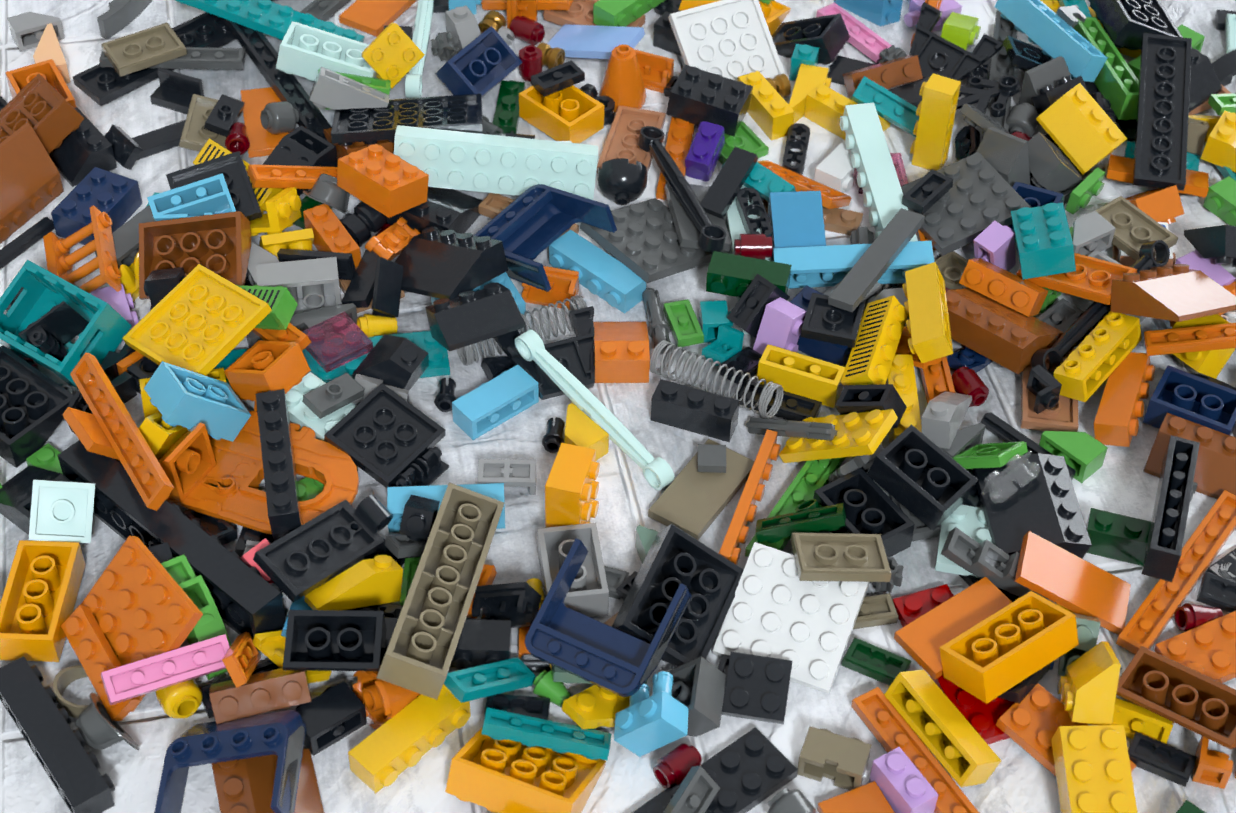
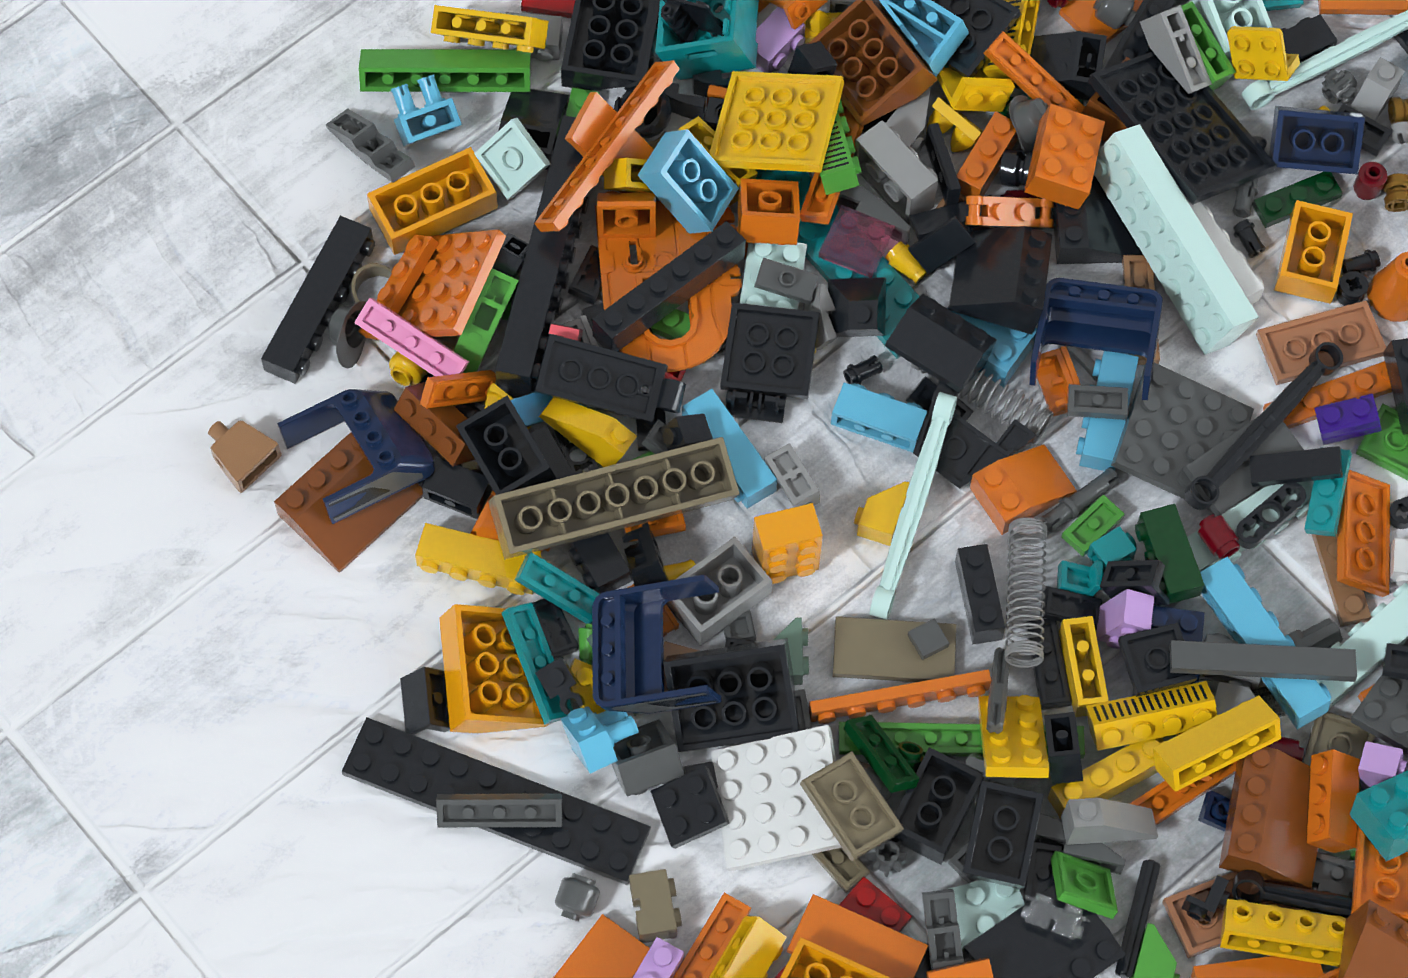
camera: 60 degrees right, 20 degrees up
(553, 436) = (868, 489): black pin -> none
(557, 78) = (1336, 224): black plate -> none
(578, 720) = (558, 680): none -> black plate
(592, 262) = (1097, 402): none -> dark grey plate
(622, 181) = (1245, 367): black cylinder -> none
(676, 765) = (571, 783): dark red brick -> none
(796, 219) = (1287, 564): dark azure slope -> none
(874, 661) = (781, 894): dark green plate -> none
(969, 383) = (1180, 829): dark red brick -> none

